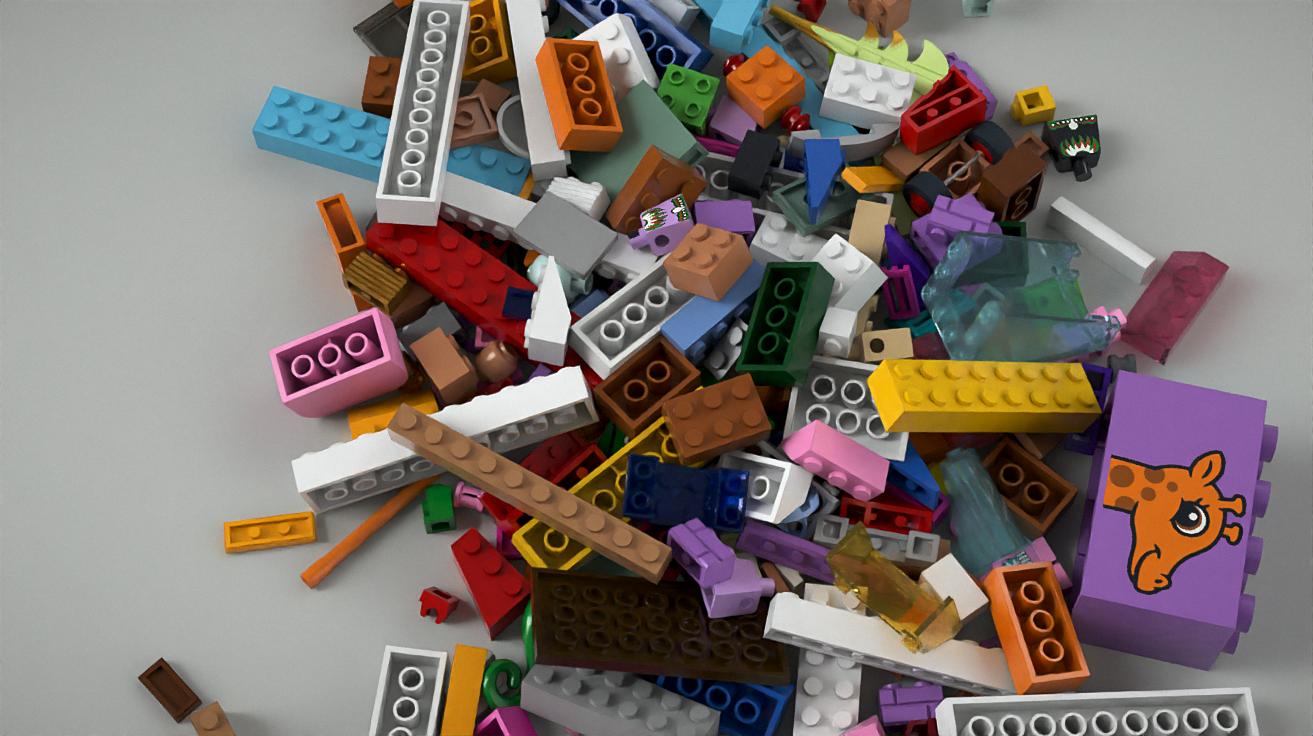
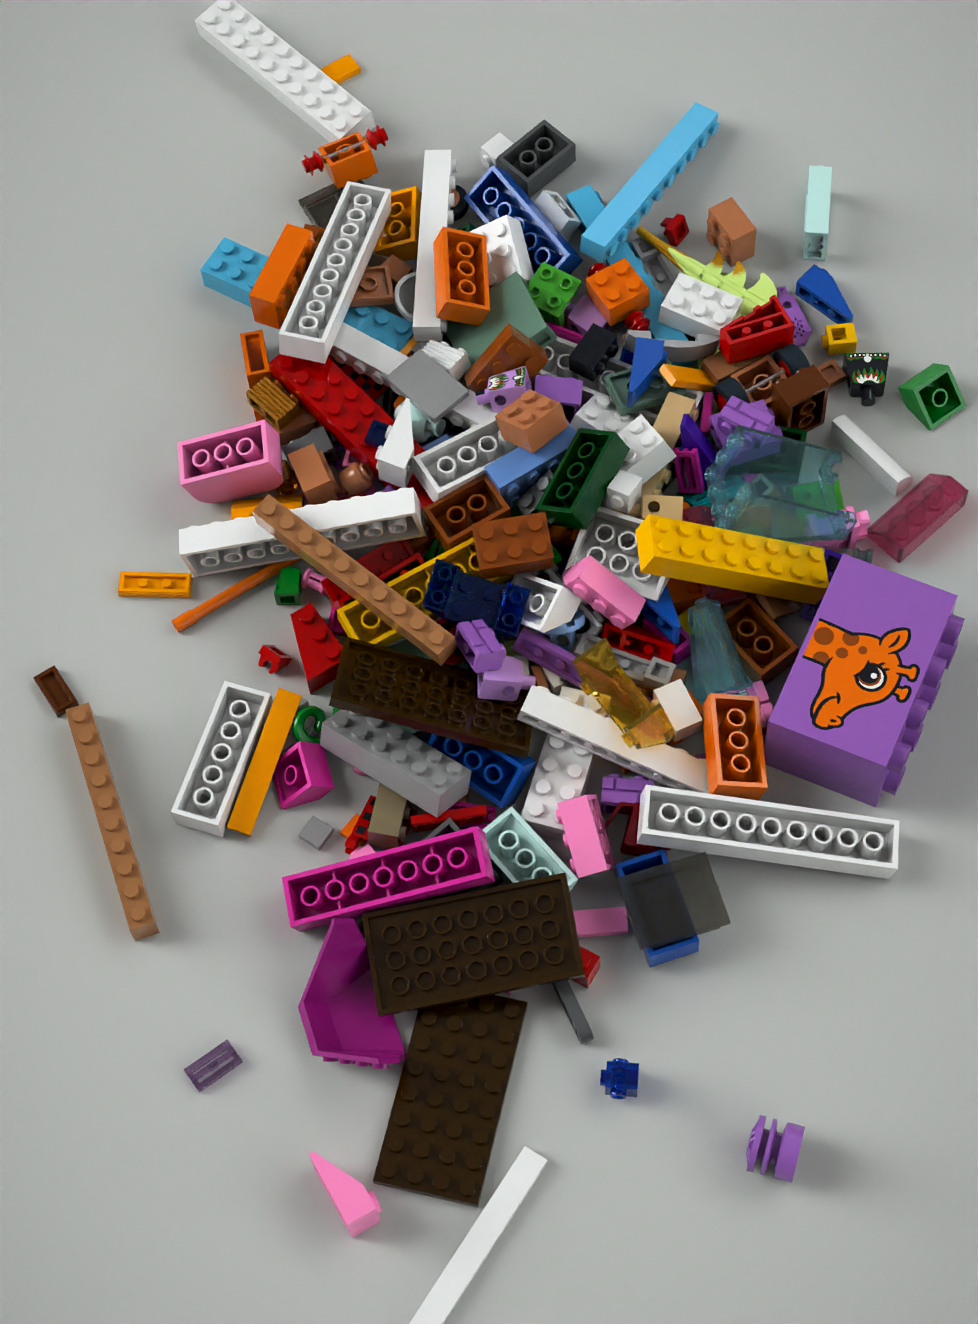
camera: 15 degrees right, 0 degrees up
(360, 125) = (282, 276): none -> orange brick
(900, 211) = (706, 412): none -> dark pink tile
(1002, 56) = (823, 294): none -> blue slope
(1156, 157) = (932, 395): none -> green slope

